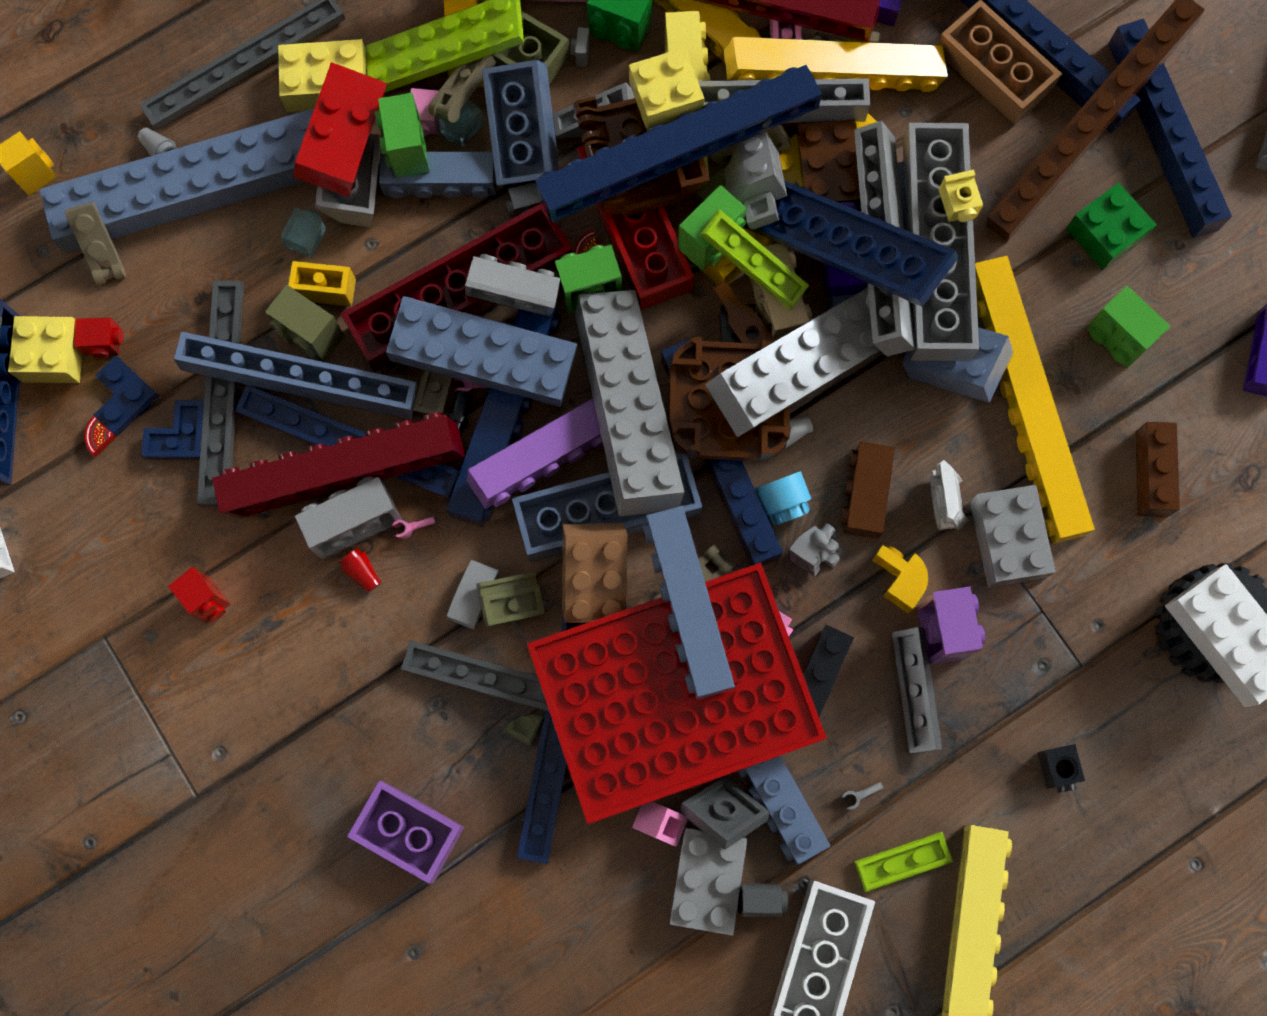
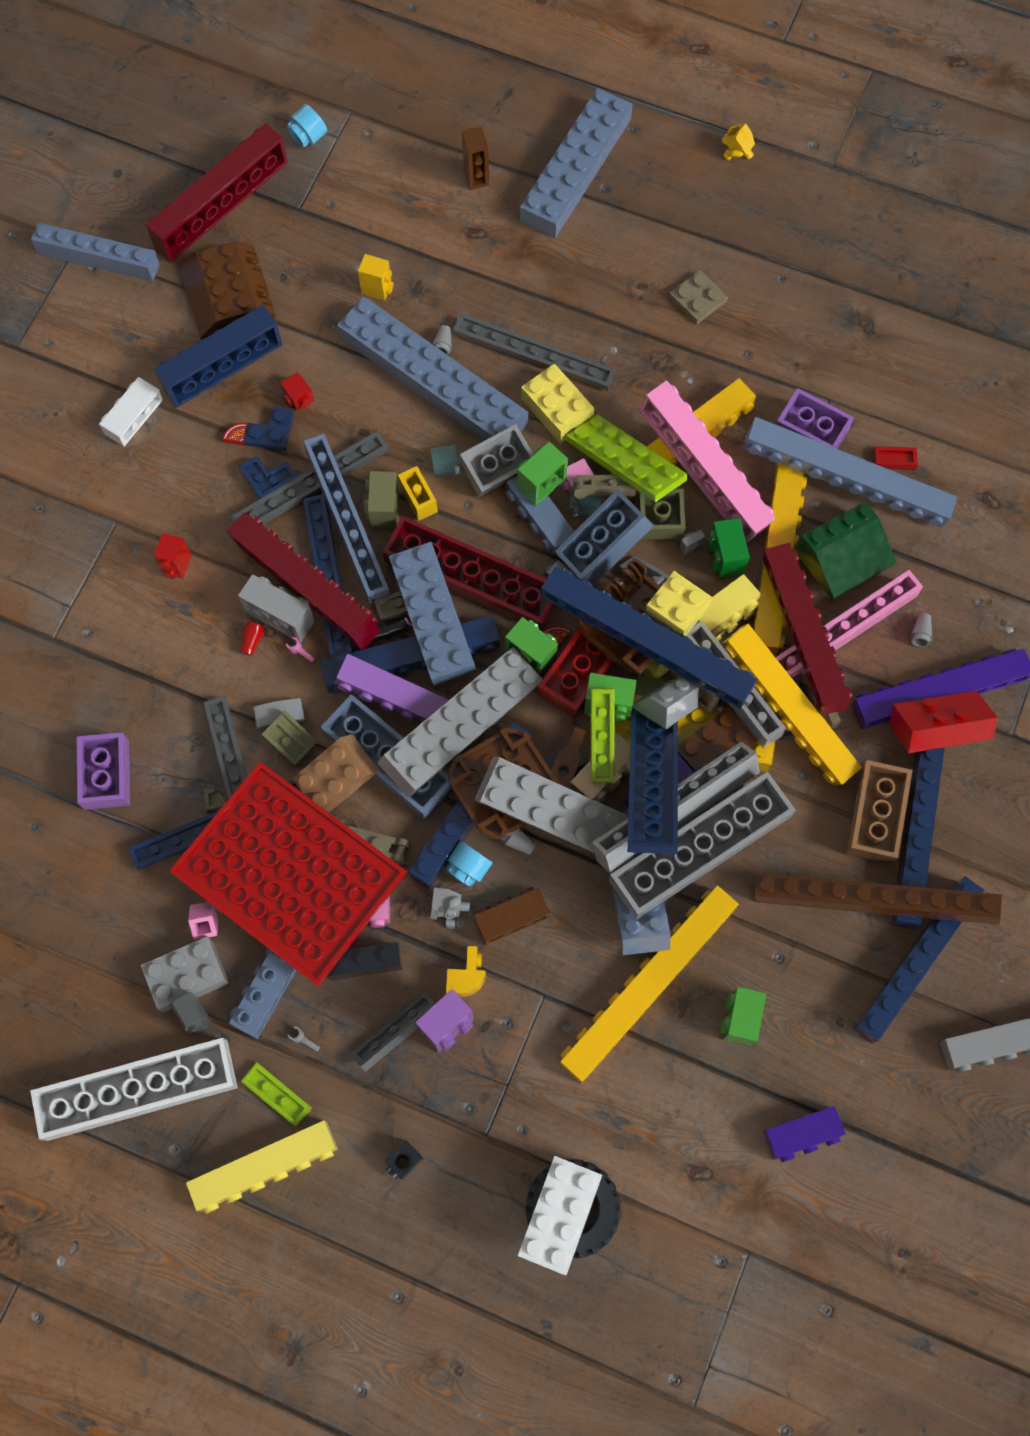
camera: 55 degrees right, 5 degrees down
(44, 350) = (267, 368): light yellow brick -> none
(95, 242) = (352, 349): dark tan plate -> none
(339, 130) = (516, 434): red brick -> none
(512, 285) = (487, 601): light grey slope -> none
(689, 602) = (347, 841): sand blue brick -> none
(724, 812) = (233, 955): dark grey plate -> none
(761, 210) = (642, 718): light grey plate -> none
(947, 497) = (541, 971): white slope -> none
(951, 194) = (740, 828): light yellow brick -> none
(1012, 536) = (542, 1030): light grey brick -> none
(1110, 226) = (814, 963): green brick -> none
(1157, 469) = (657, 1101): reddish brown brick -> none

